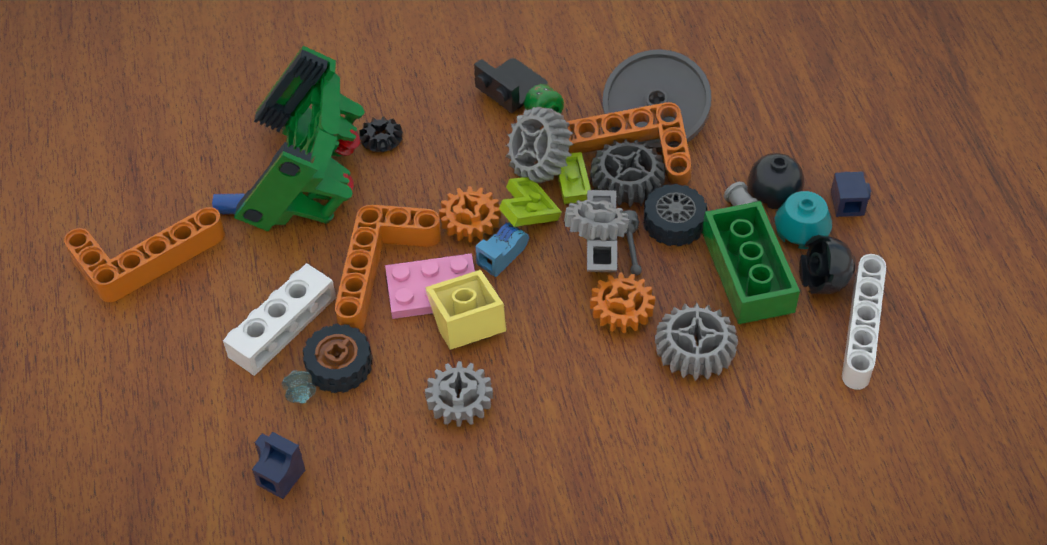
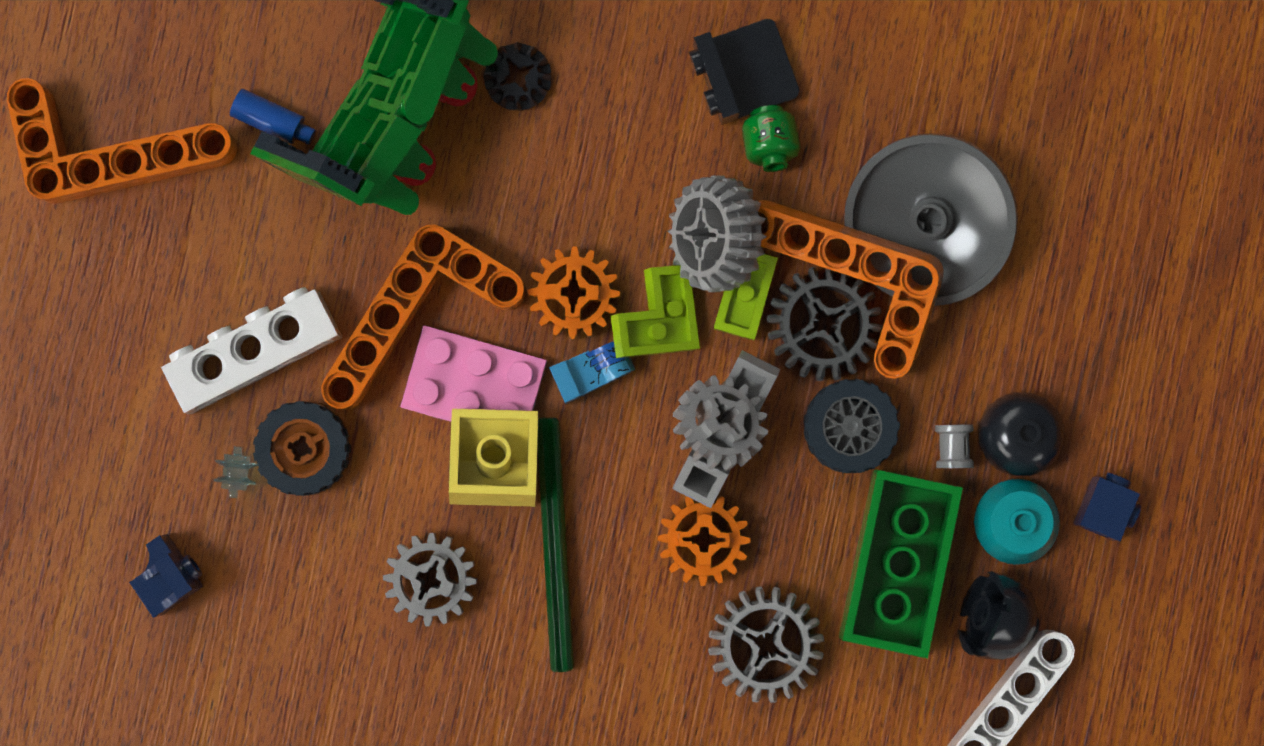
camera: 30 degrees right, 35 degrees up
(537, 356) = (554, 545): none -> dark green axle
(633, 225) = (779, 414): dark grey hinge -> none

